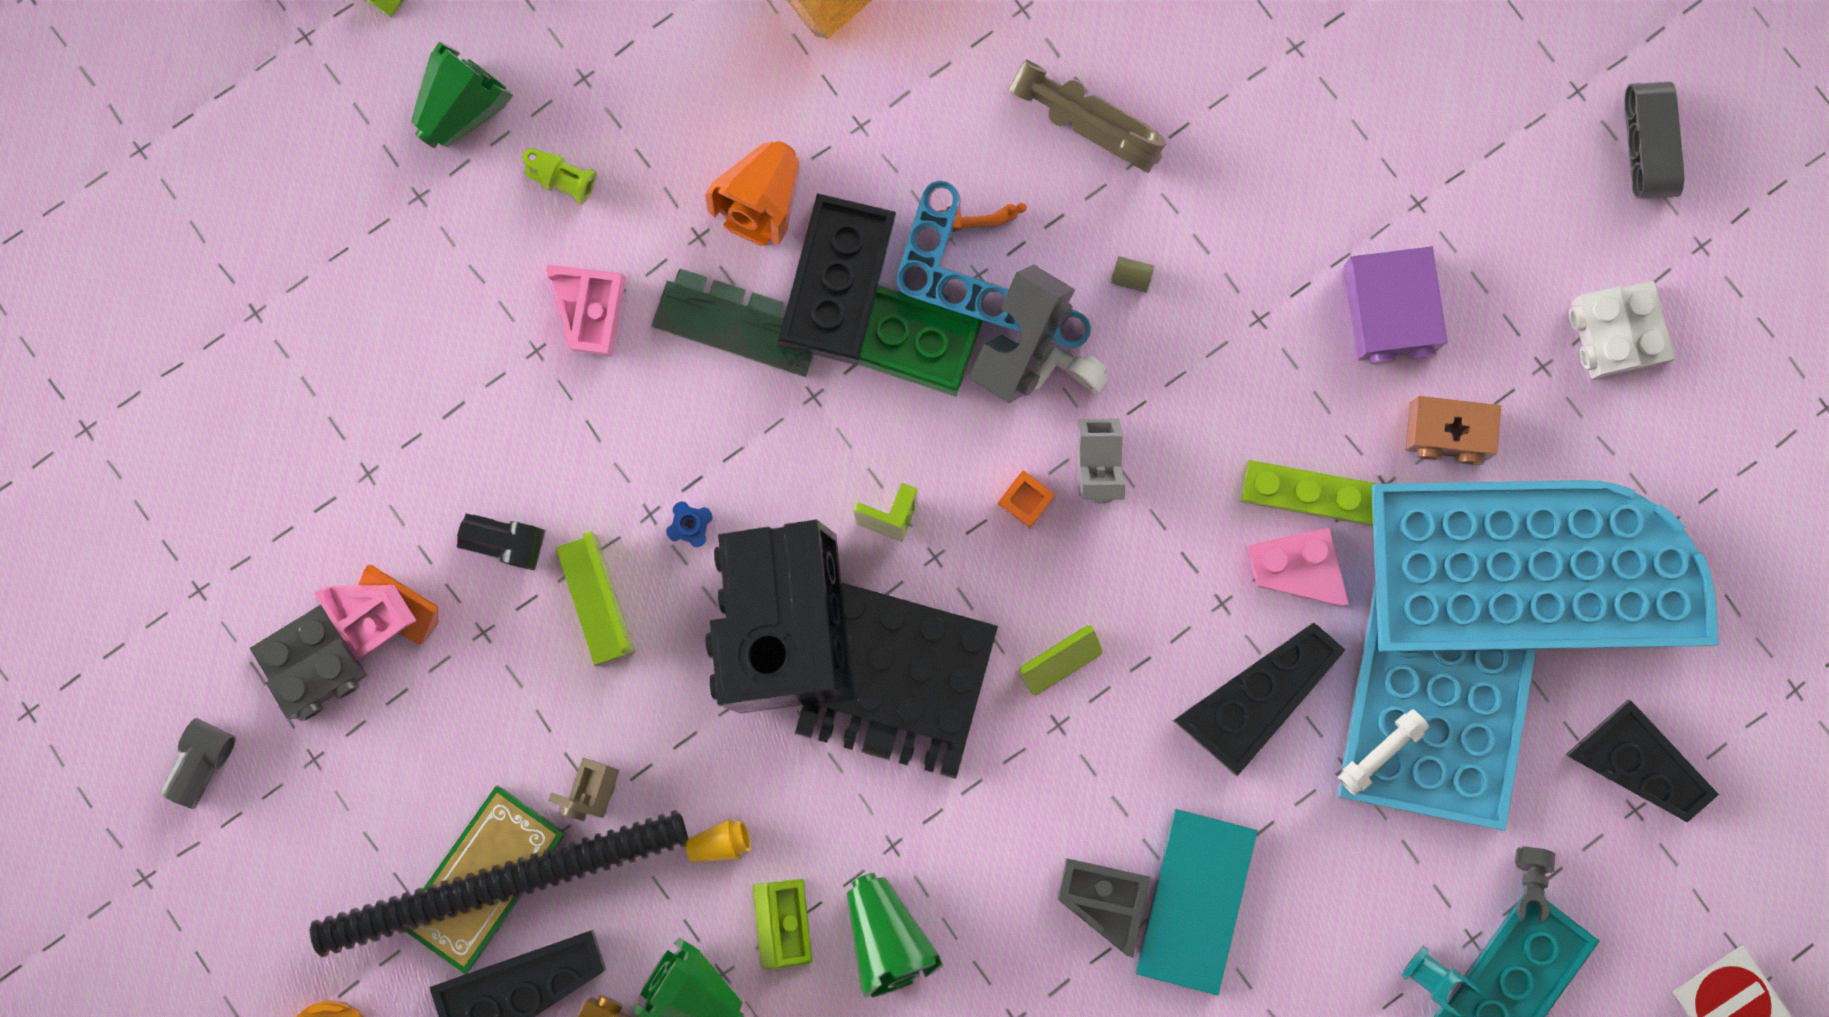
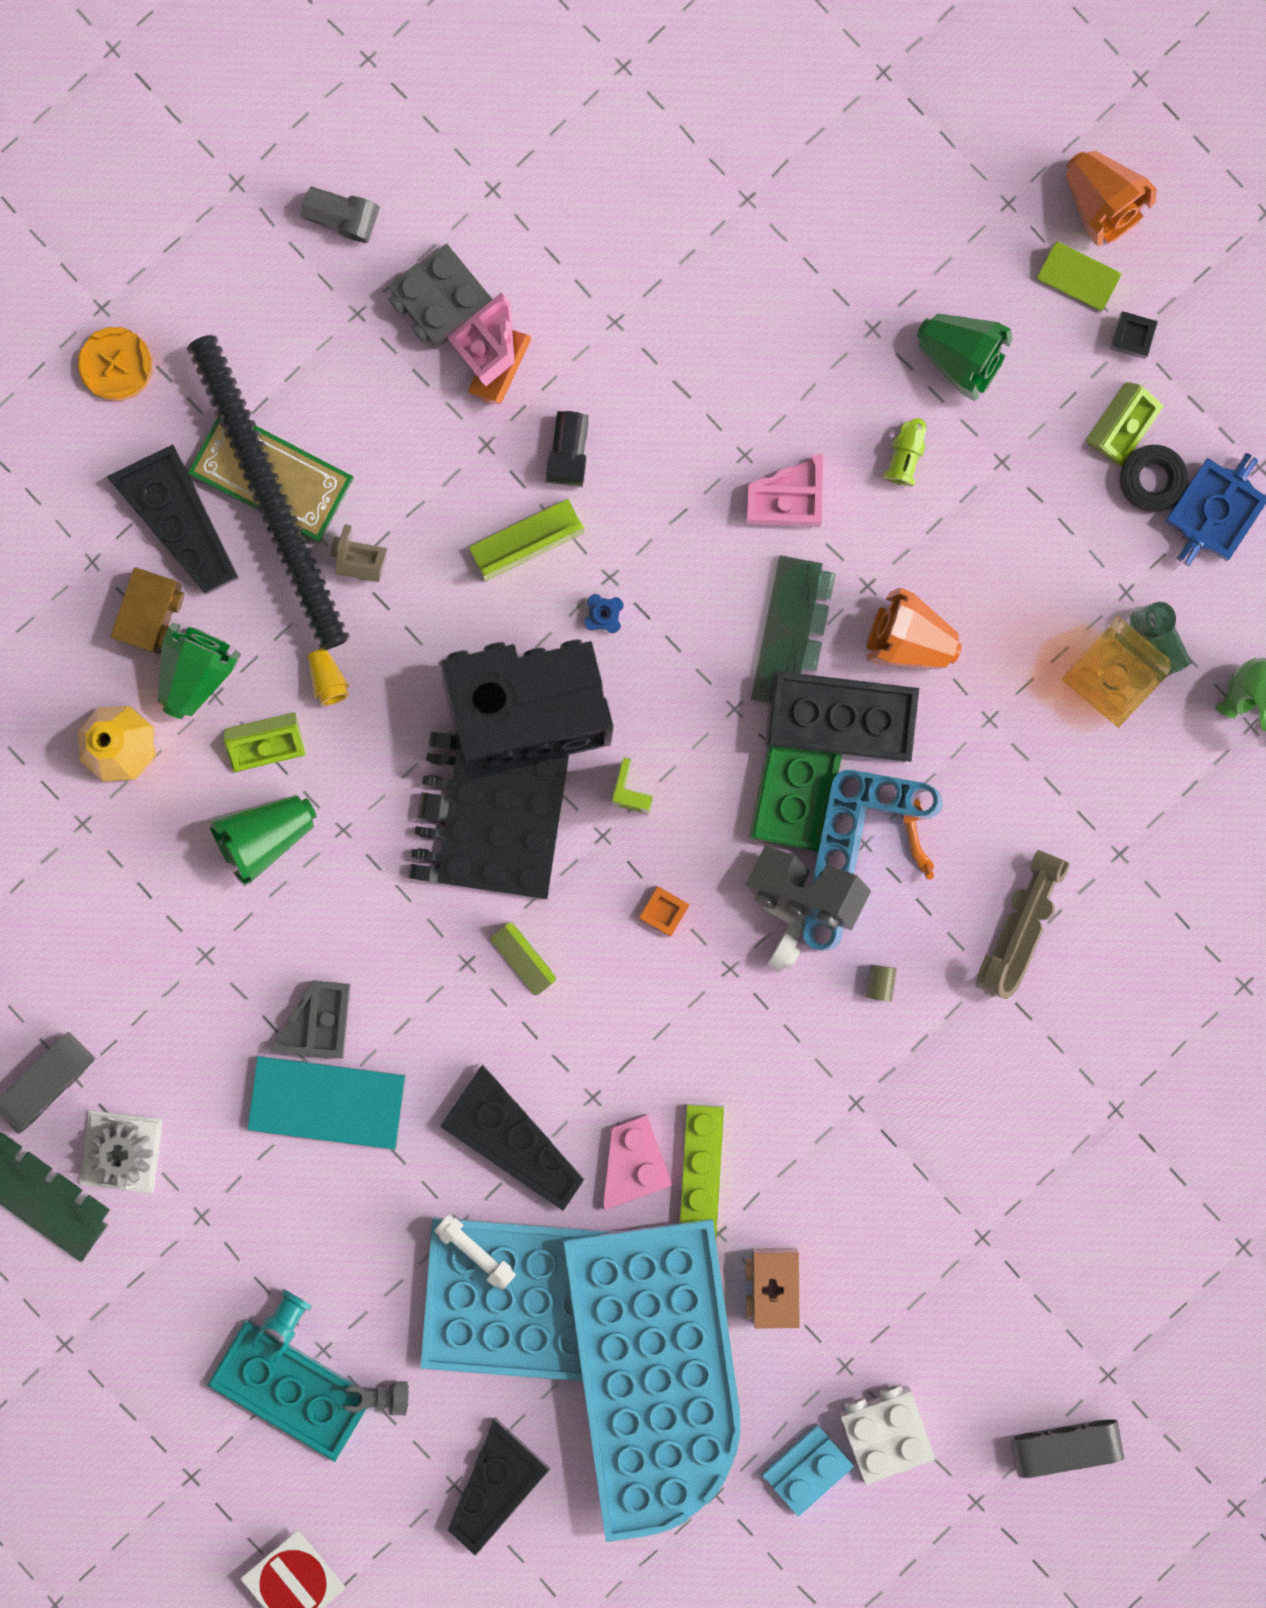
camera: 85 degrees right, 5 degrees up
(1100, 460) = (705, 972): light grey brick -> none
(1395, 305) = (882, 1225): medium lavender brick -> none
(1652, 419) = (807, 1470): none -> medium azure plate

